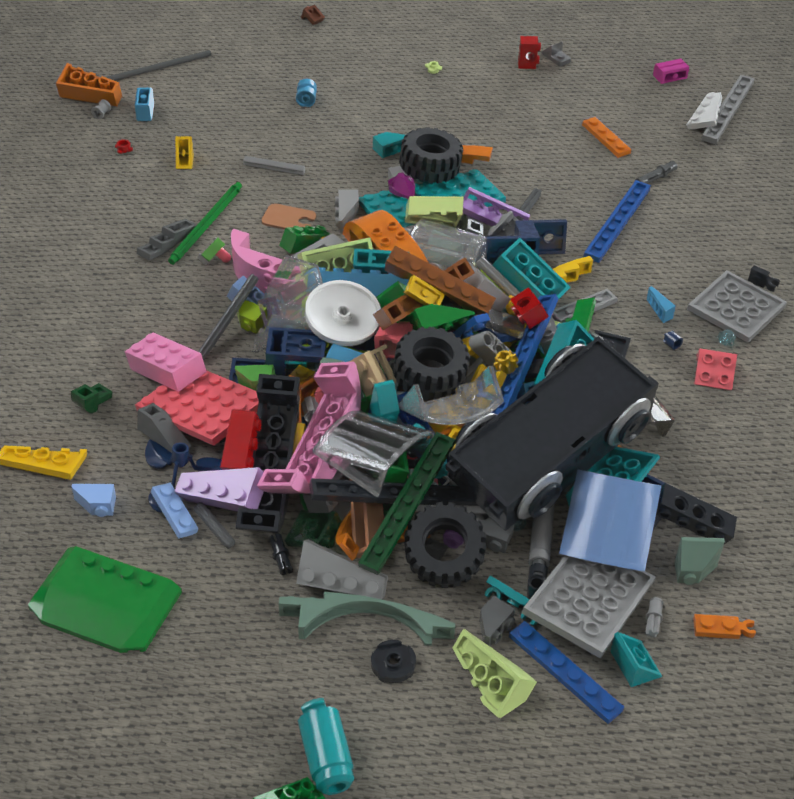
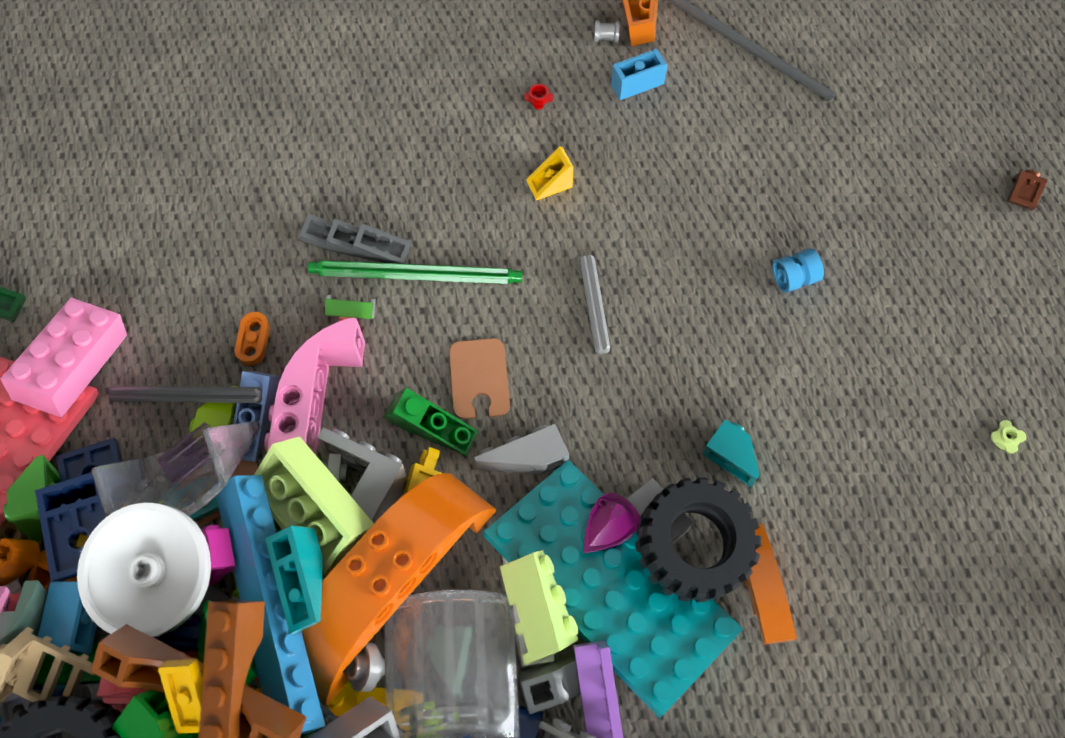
camera: 70 degrees right, 20 degrees up
(203, 293) = (252, 340): none -> orange plate

